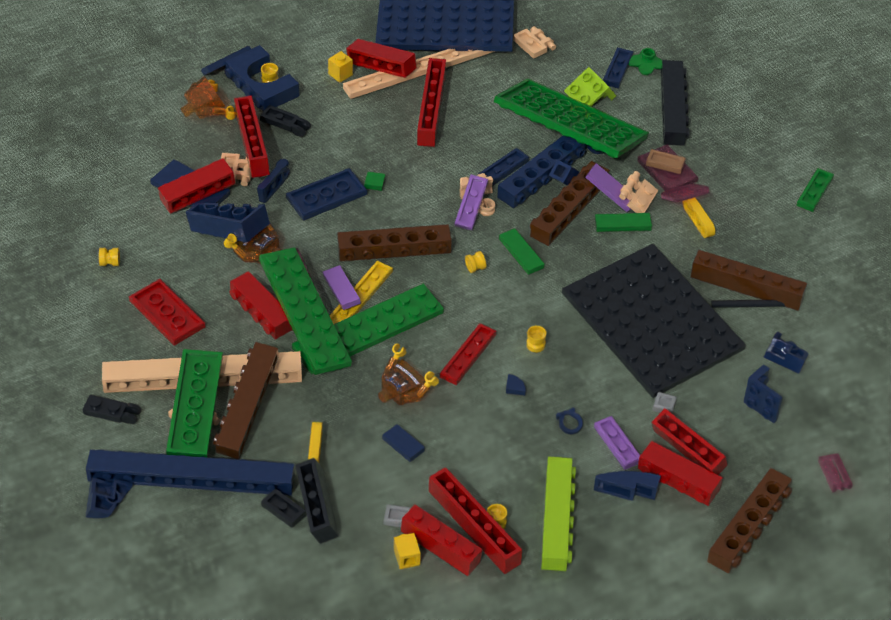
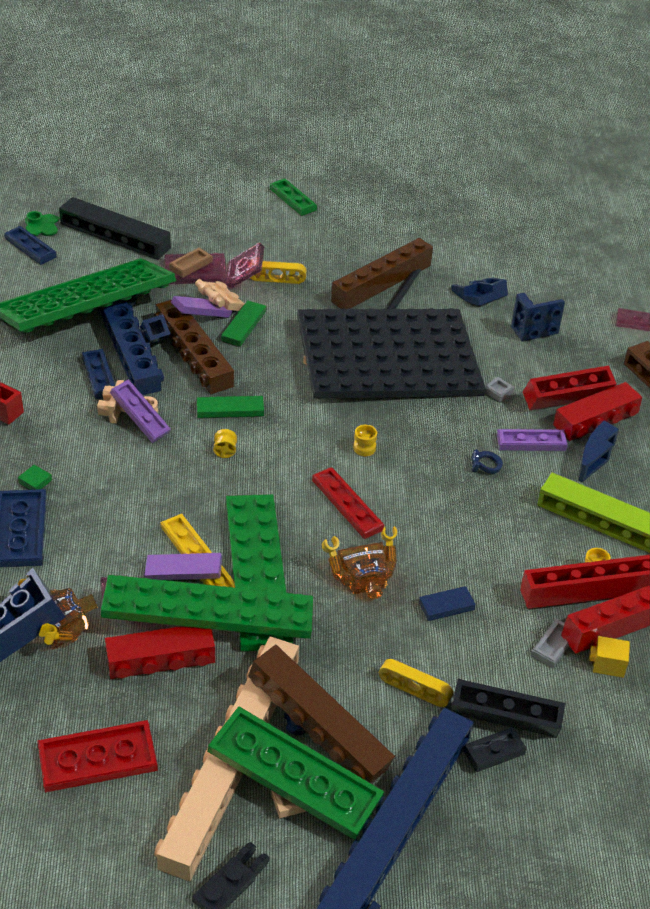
camera: 65 degrees left, 5 degrees down
(394, 242) = (147, 498): reddish brown brick -> none
(515, 385) = (415, 483): dark blue tile -> none
(589, 88) = (46, 269): lime bracket -> none

